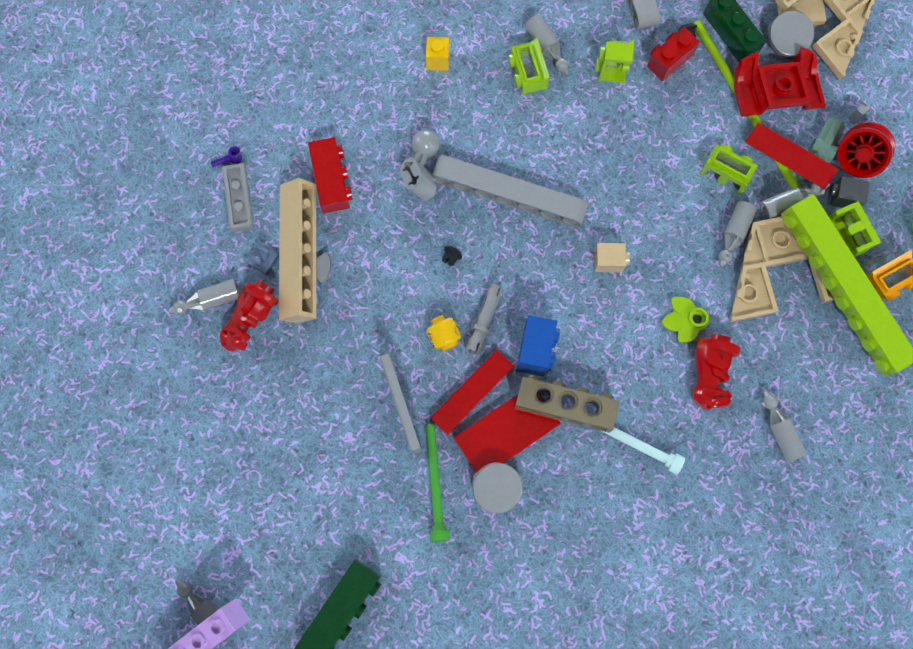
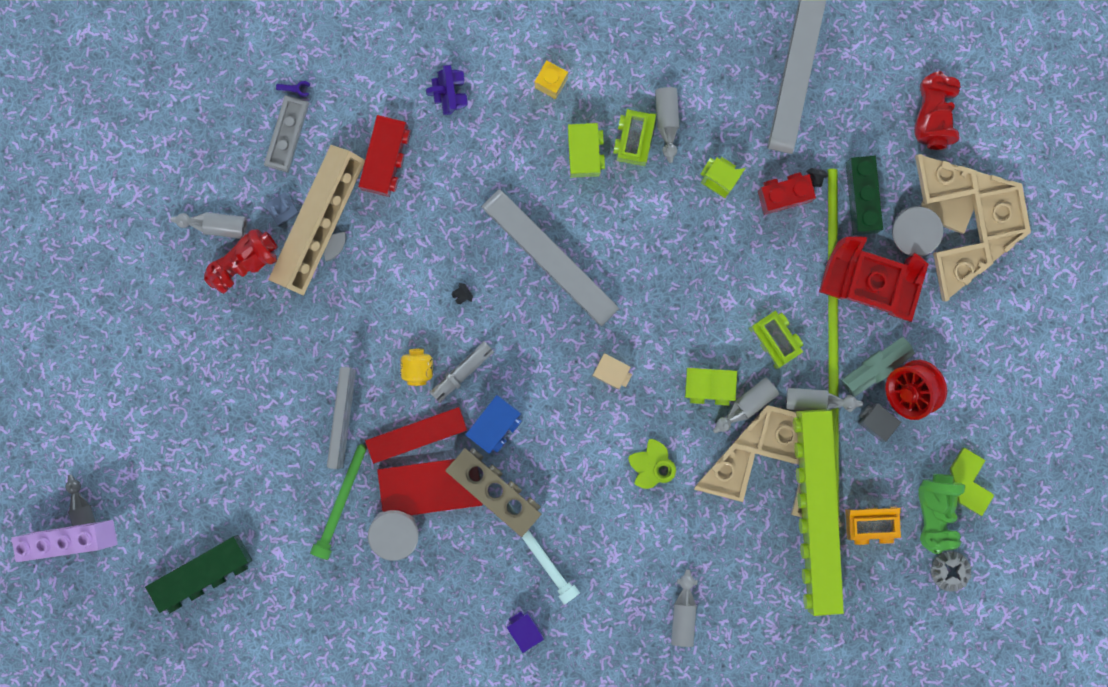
camera: 25 degrees right, 10 degrees up
(354, 101) = (444, 91): none -> dark purple hips
(414, 174) = (465, 195): light grey beam -> none
(493, 93) = (584, 150): none -> lime brick
(656, 515) = (524, 631): none -> dark purple brick
(697, 229) = (710, 384): none -> lime brick
(712, 365) = (651, 521): red animal -> none
(791, 156) = (841, 358): red tile -> none
(855, 228) = (857, 461): lime window -> none
(859, 112) = (940, 345): light grey tile -> none

